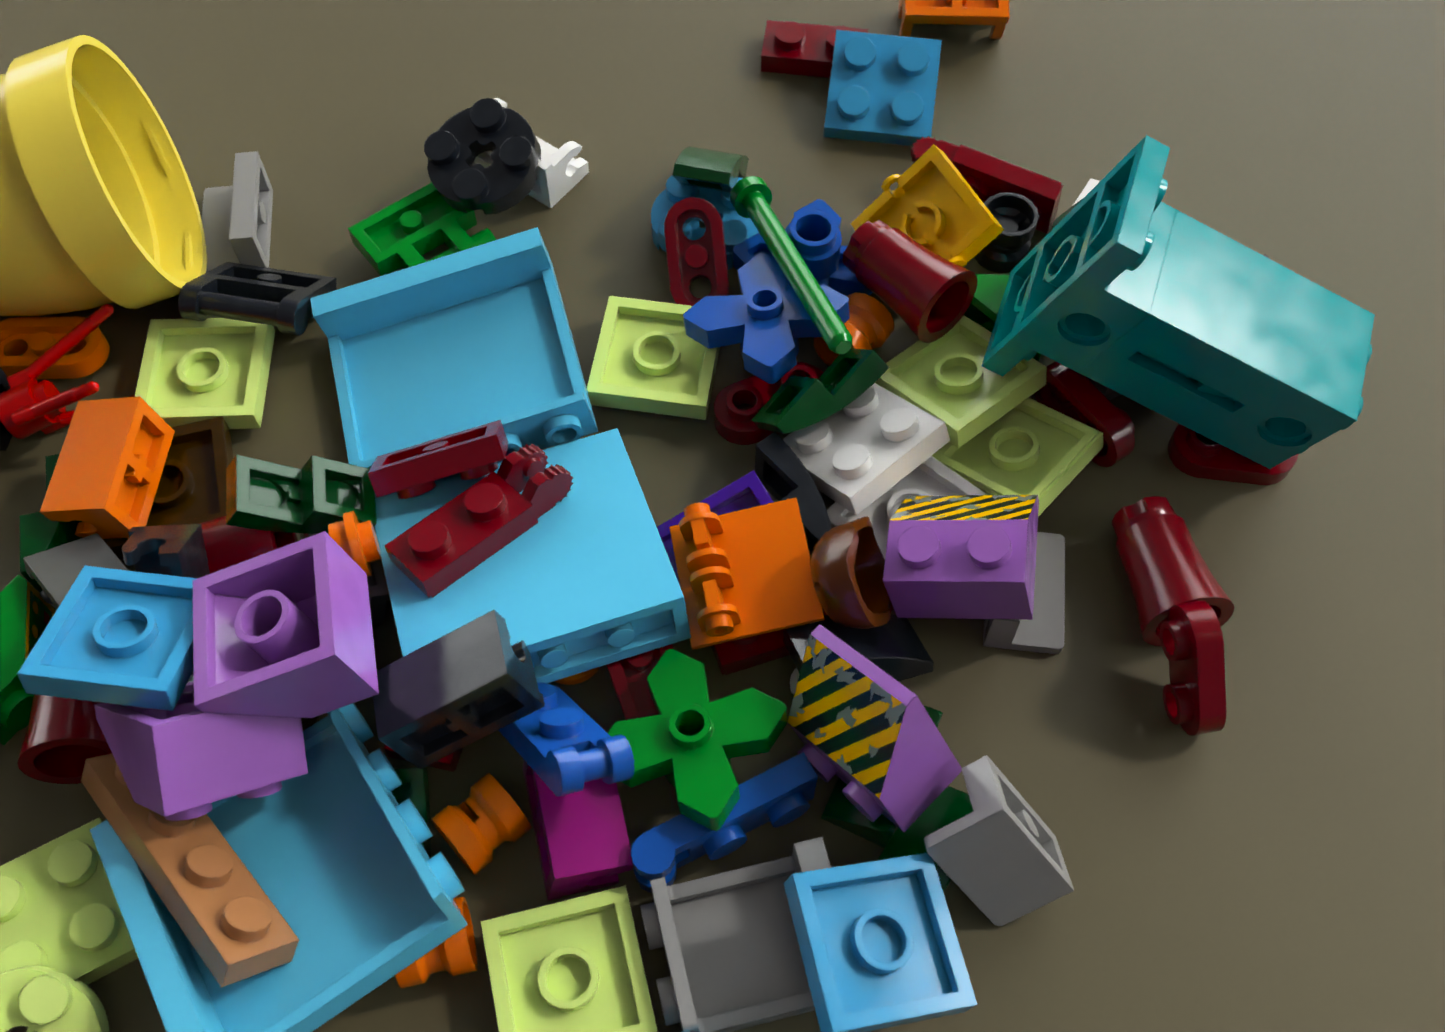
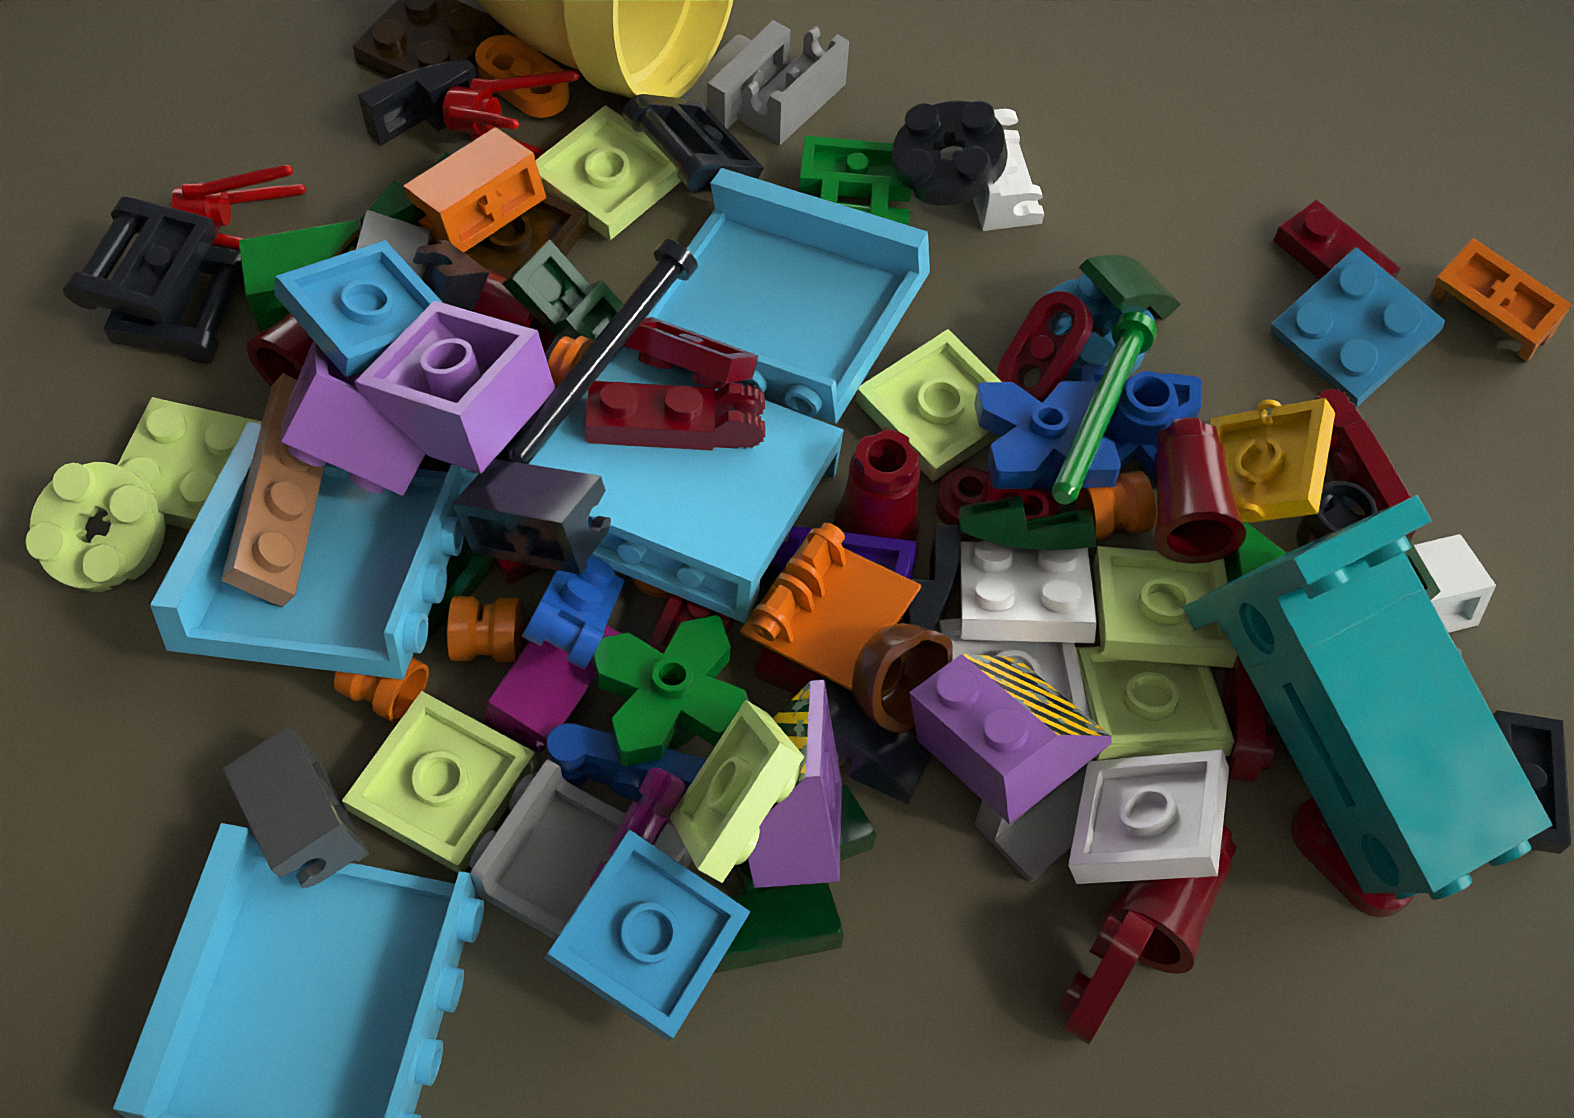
camera: 40 degrees right, 0 degrees up
(299, 198) = (797, 89): none -> light grey hinge
(371, 393) = (672, 263): none -> black bar
(688, 452) = (881, 489): none -> dark red plant
(776, 863) = (646, 817): none -> magenta axle
(844, 768) = (735, 791): none -> yellowish green plate
(1001, 850) = (812, 959): light grey panel -> none
(1117, 531) = (1150, 818): none -> white plate

